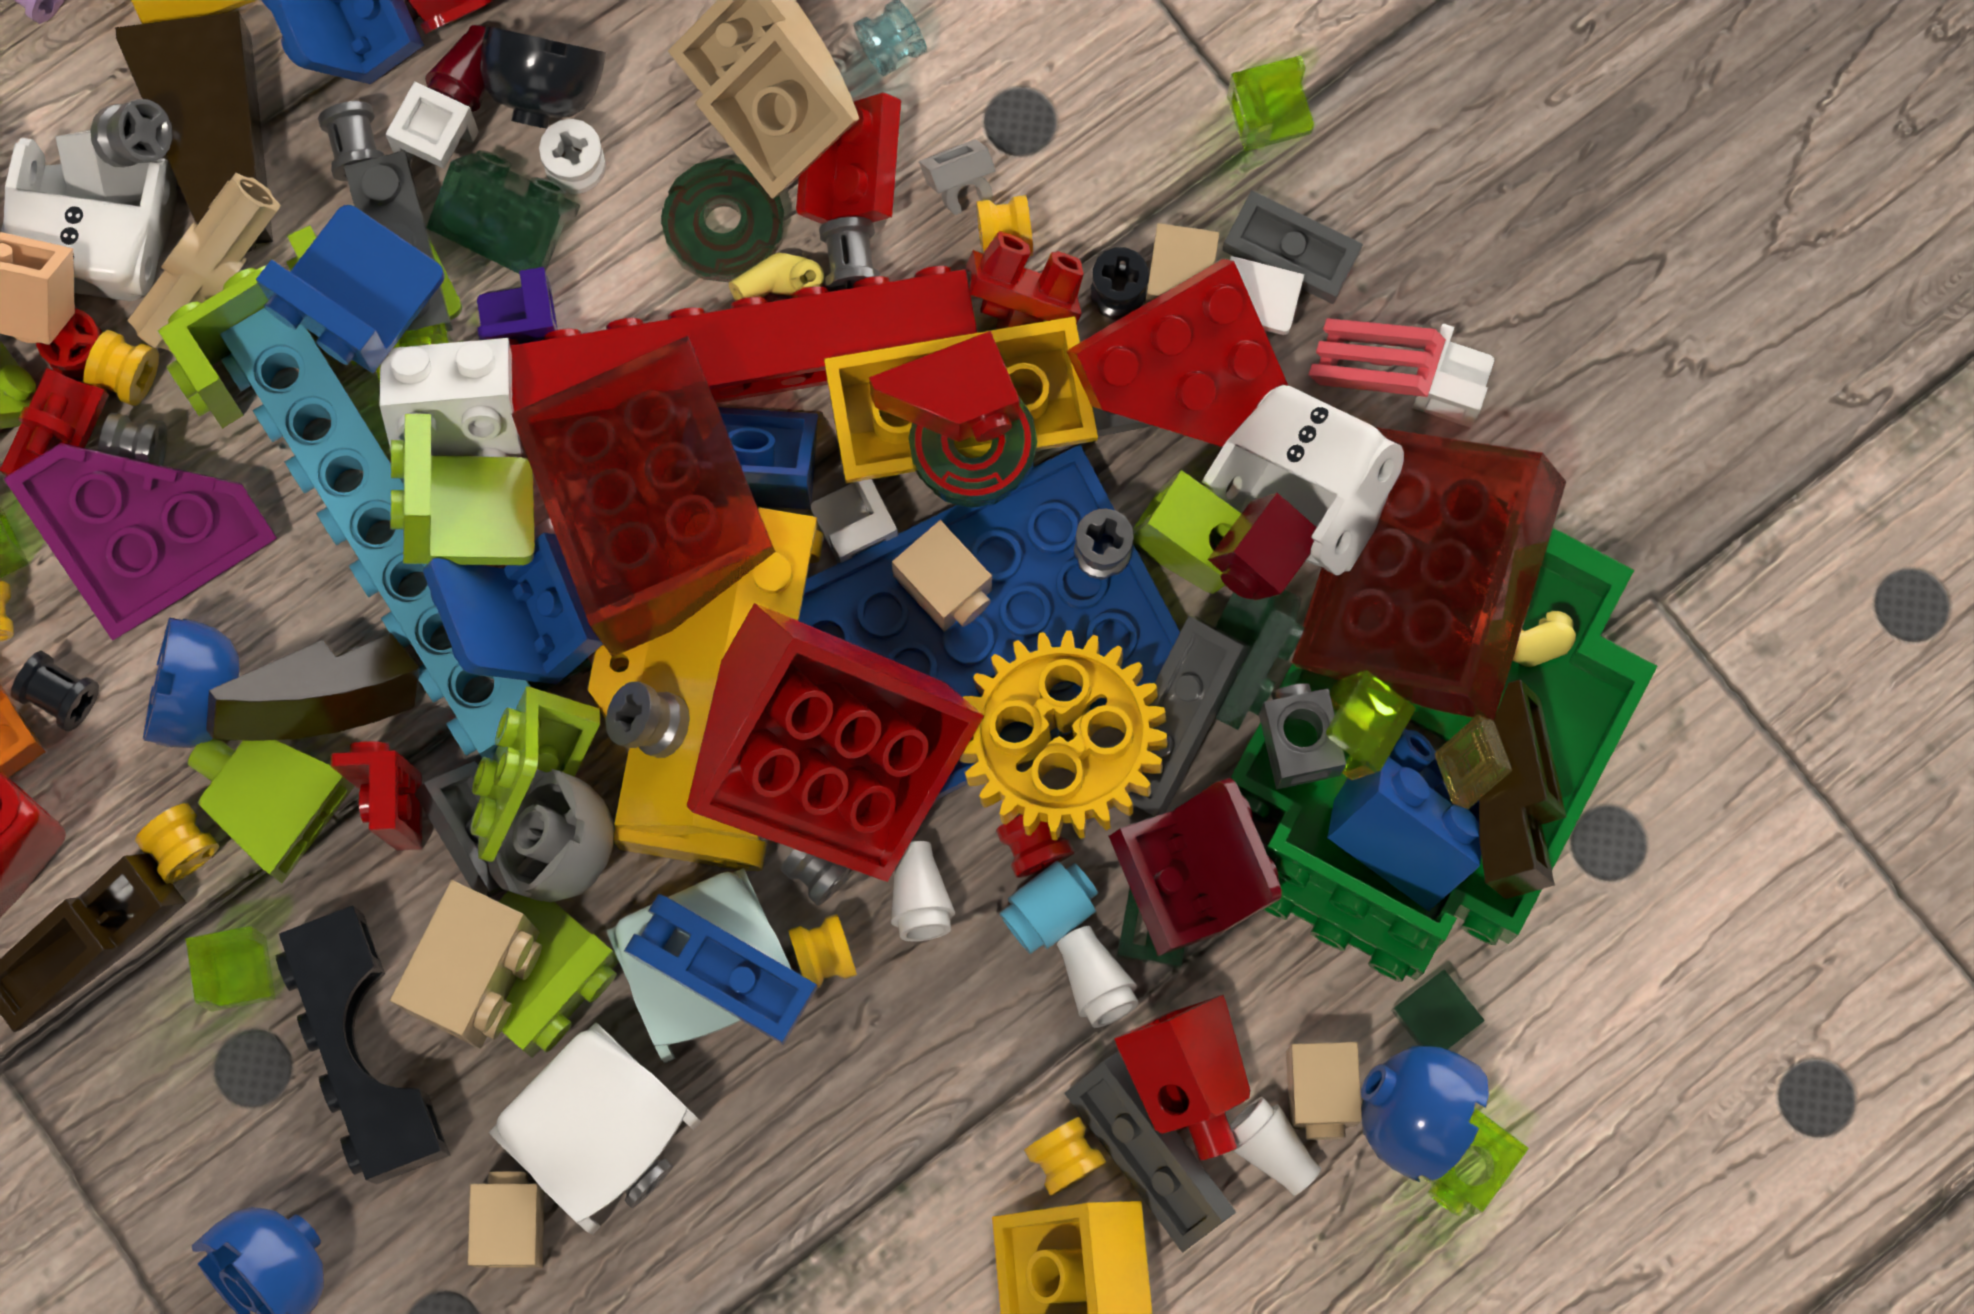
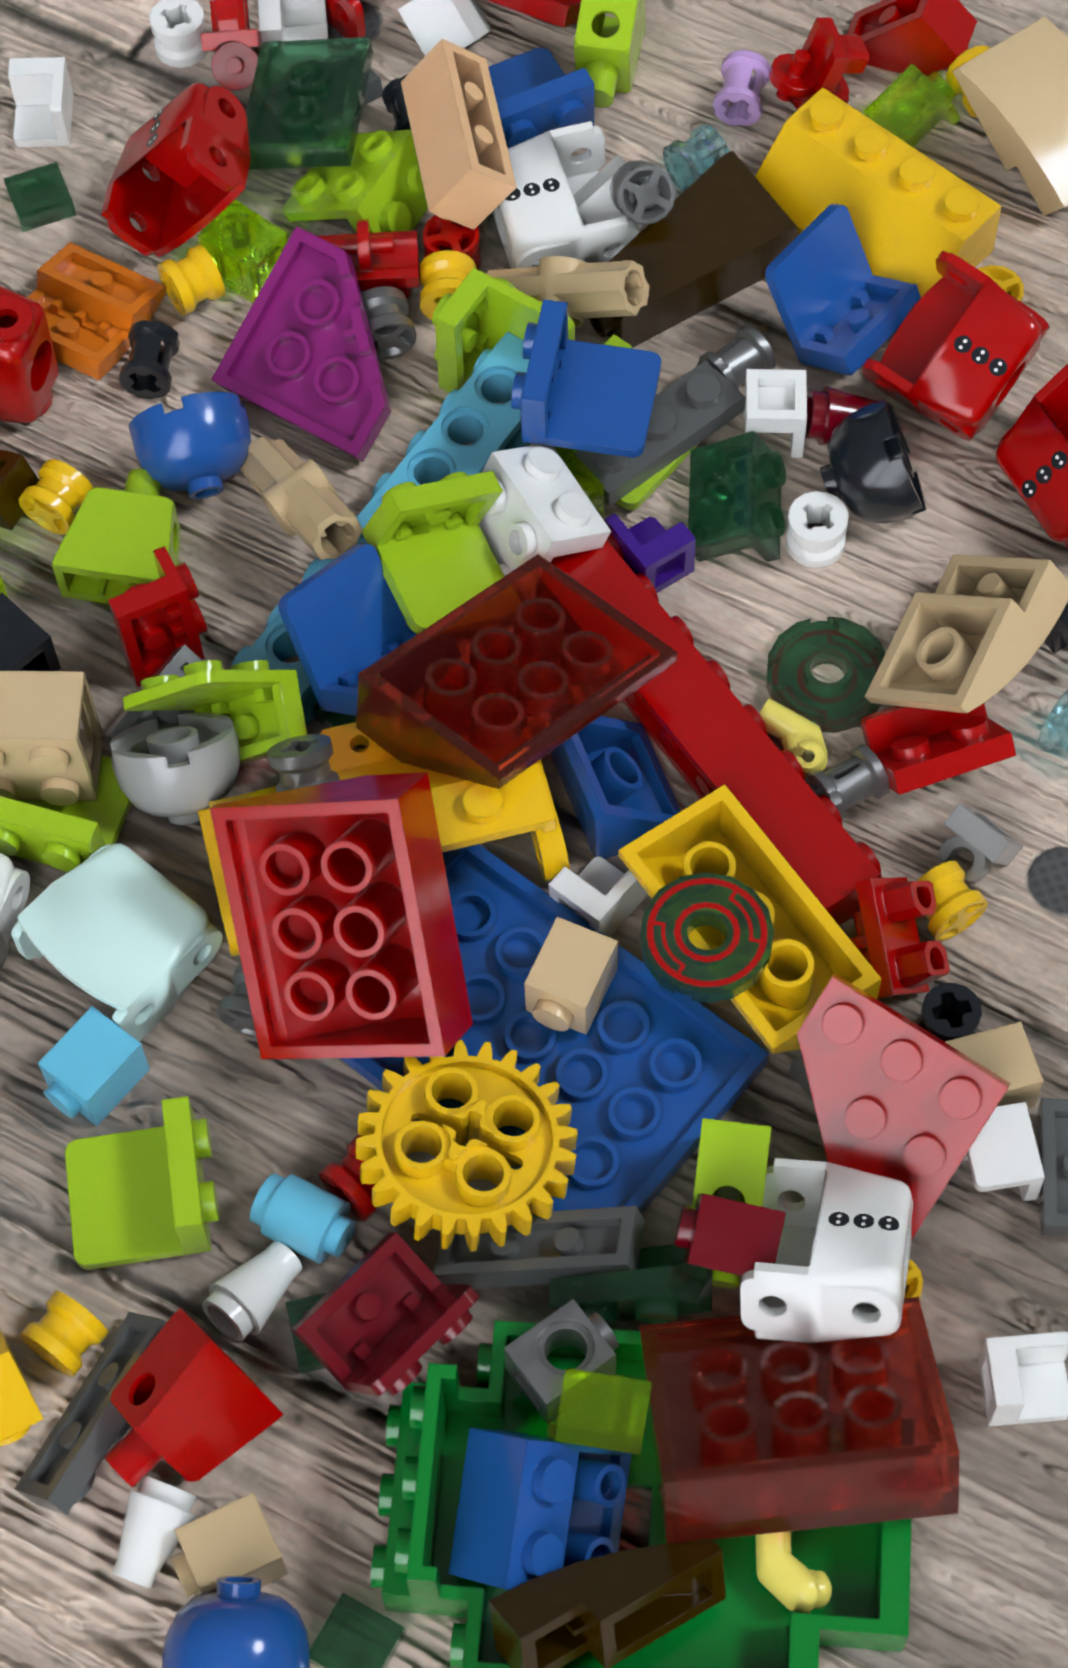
camera: 70 degrees right, 15 degrees down
(93, 65) = (691, 158): none -> clear light blue wheel
(315, 607) = (301, 498): none -> tan piece
(315, 693) = (224, 528): dark brown slope -> none
(723, 970) = (103, 937): blue plate -> none
(823, 951) = (174, 1036): yellow wheel -> none
(825, 1042) = (92, 1067): none -> medium azure brick
(919, 896) = (266, 1098): white cone -> none
(952, 391) = (741, 885): red slope -> none
(959, 1037) = (142, 1191): none -> lime bracket
(1092, 529) = (691, 1097): flat silver bush -> none
(1338, 331) = (994, 1256): coral tile -> none
(1473, 761) = (612, 1537): clear yellow tile -> none

